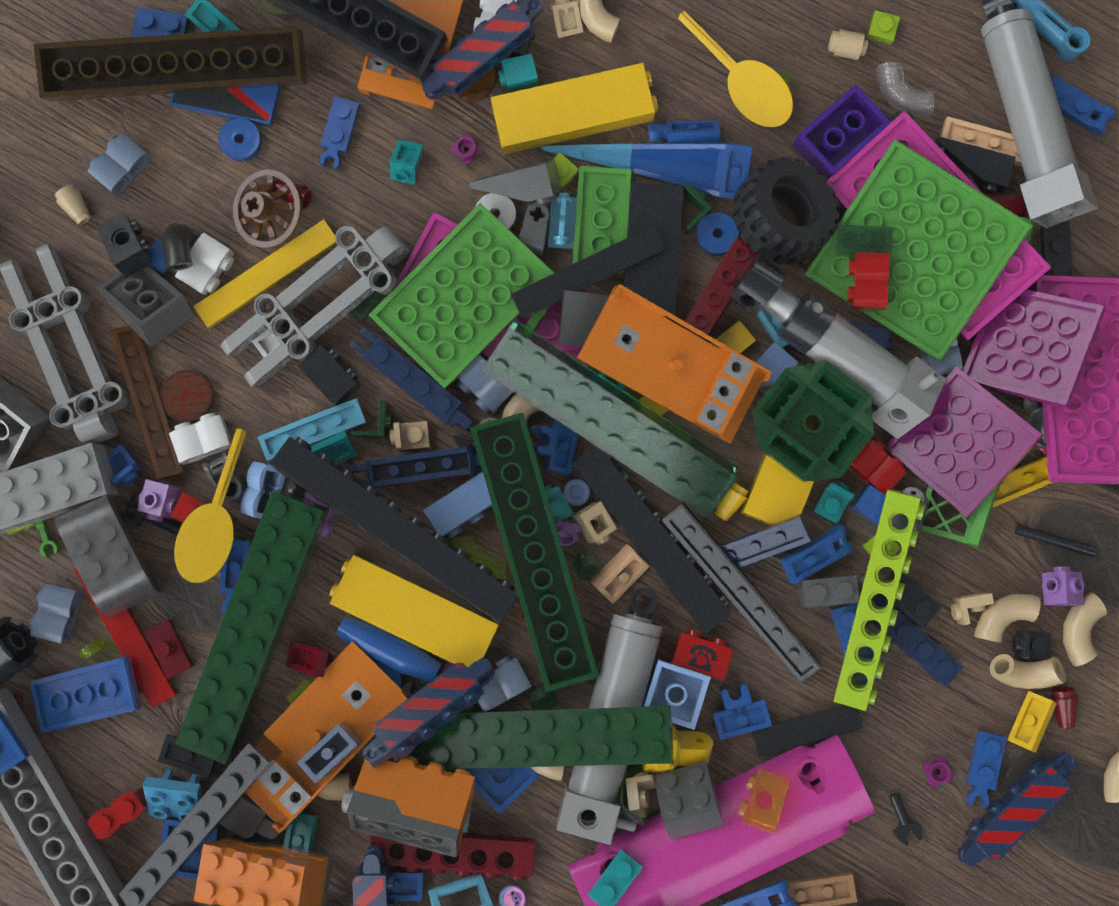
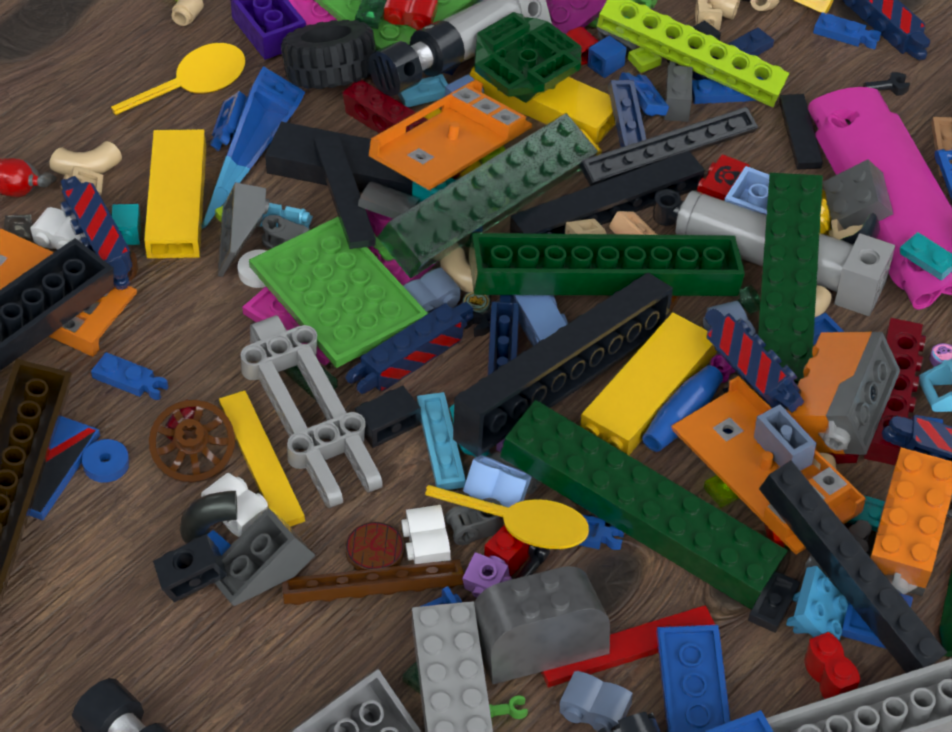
camera: 85 degrees left, 35 degrees down
(73, 204) = (123, 620): tan cone -> none
(88, 426) = (385, 631): light grey beam -> none
(92, 648) = (641, 674): clear neon green tile -> none
(118, 164) = (93, 568): sand blue brick -> none
(168, 648) = (652, 605): dark red tile -> none
(266, 343) = (340, 467): white tile -> none
(308, 658) = (685, 464): dark red tile -> none
(385, 422) = (445, 380): dark green bracket -> none
(405, 161) = (182, 321): teal bracket -> none
(410, 436) = (466, 364): tan bracket -> none
(463, 142) = (185, 278): magenta plate -> none
(601, 210) = (292, 188): bright green plate -> none
(700, 201) = (303, 117): dark green bracket -> none
(711, 244) = (331, 117): blue piece -> none
(740, 714) = (778, 161): blue plate -> none
(773, 785) = (863, 141): clear yellow brick -> none
(833, 501) = (591, 76): teal bracket -> none
(945, 773) = (847, 56): magenta plate -> none

